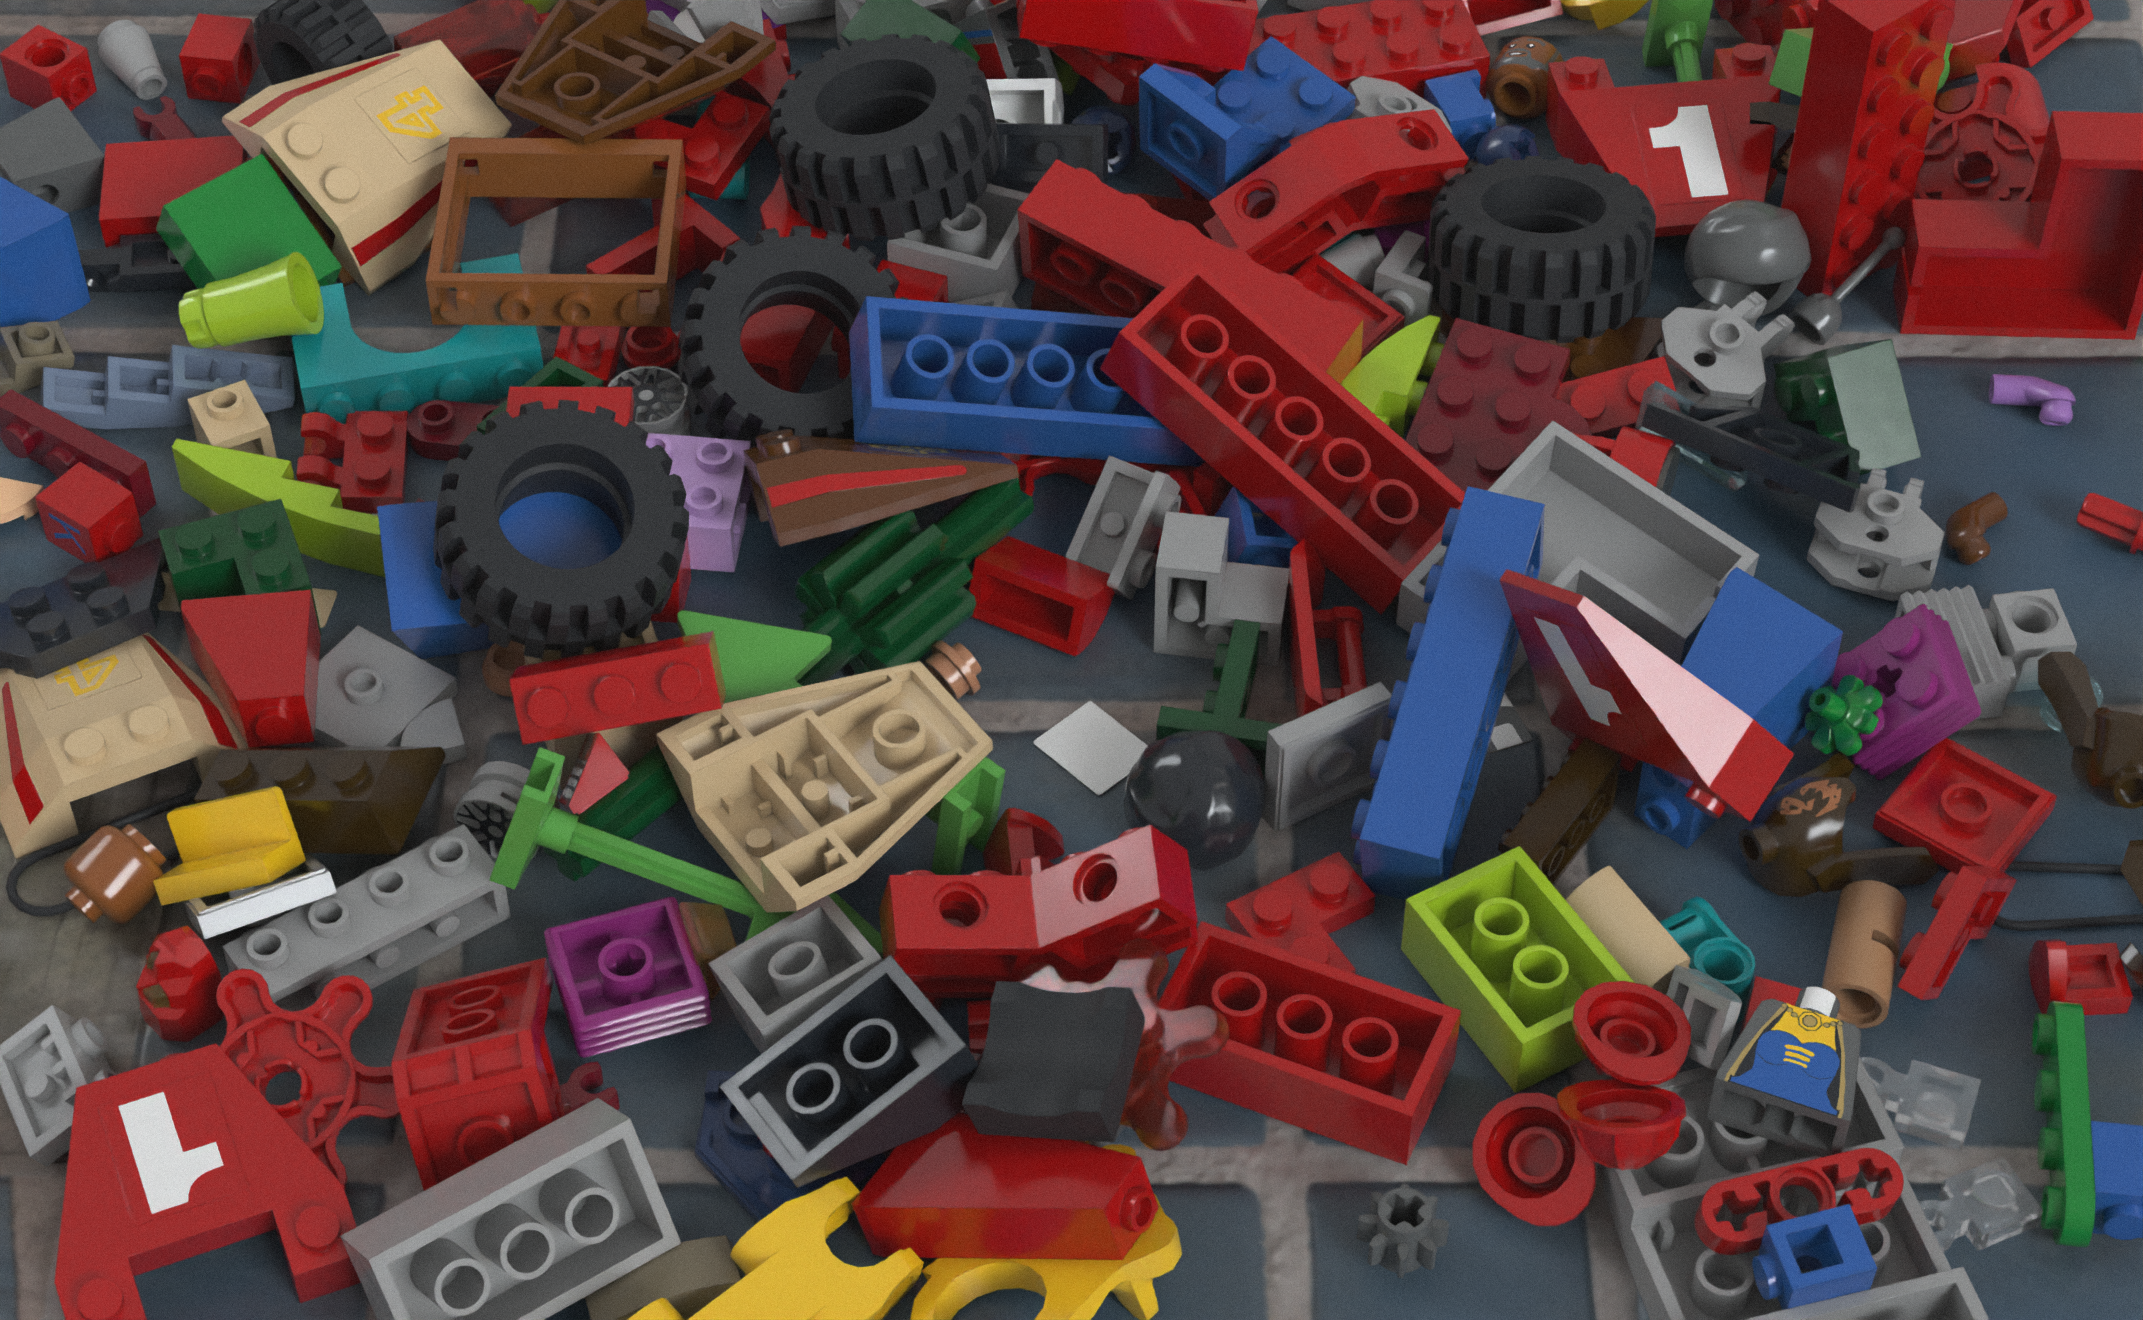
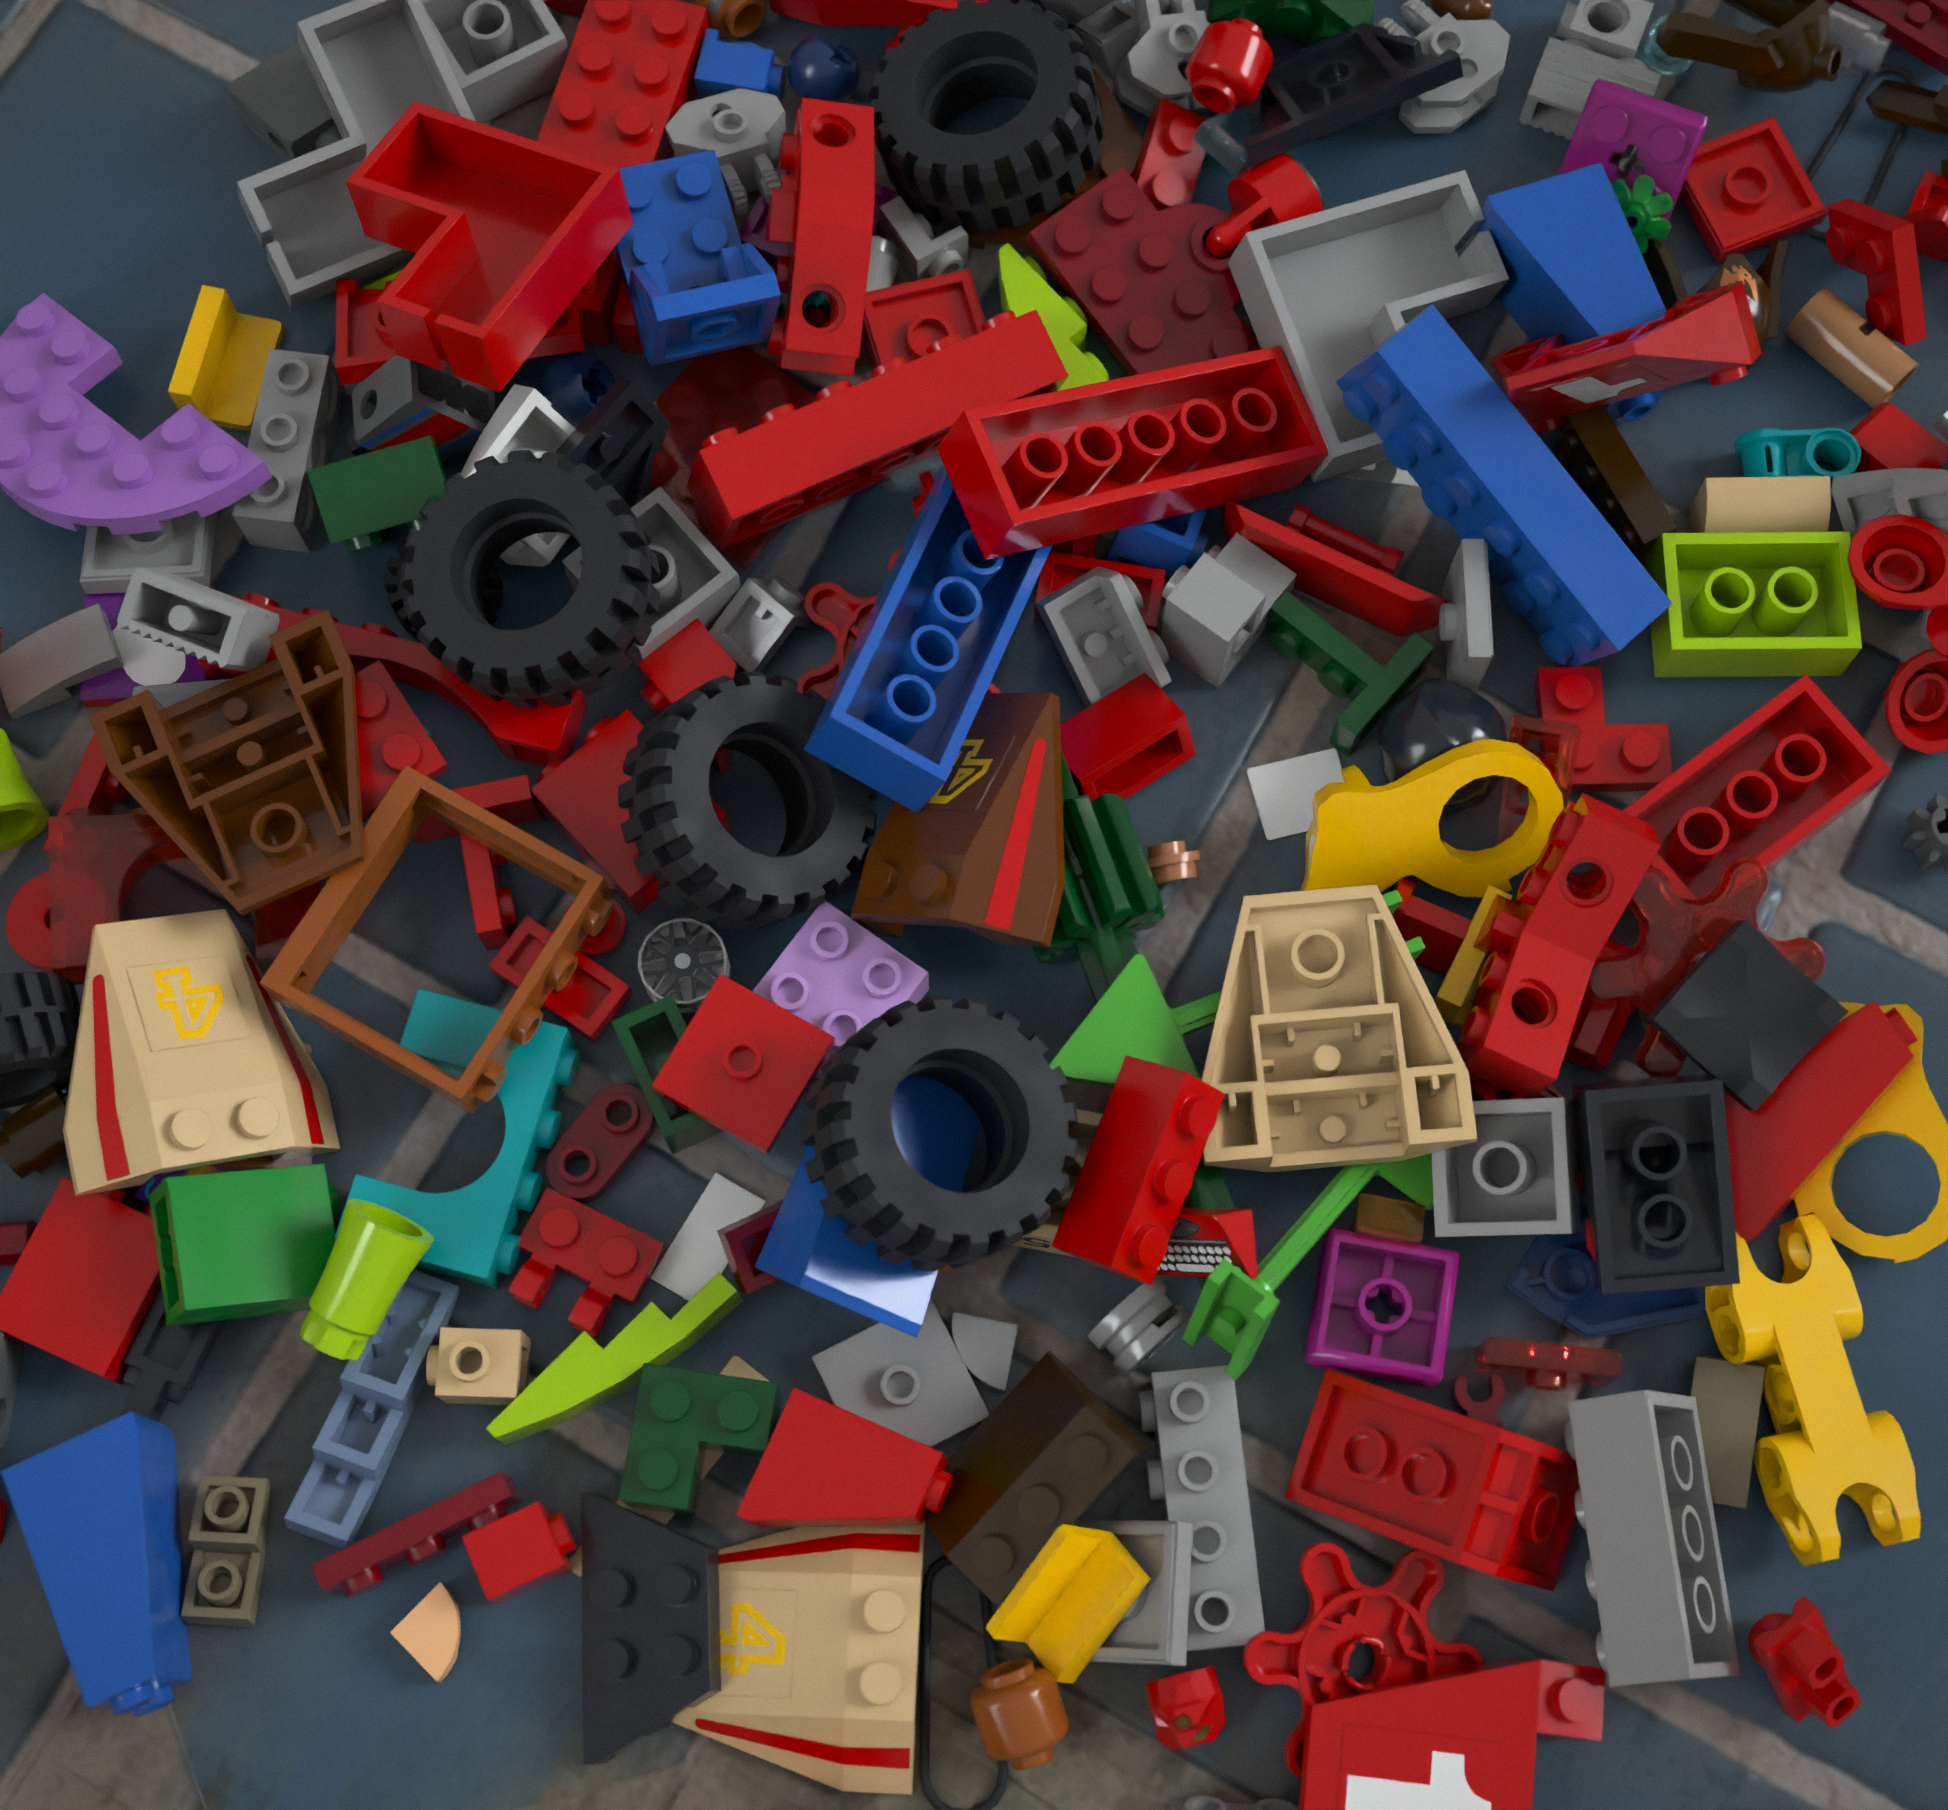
camera: 60 degrees left, 25 degrees up
(652, 1123) = (1548, 1364): none -> clear red plate
(1082, 772) = (1392, 830): none -> yellow animal
(1235, 874) = (1522, 730): none -> clear red slope
(1722, 367) = (1229, 65): none -> red head

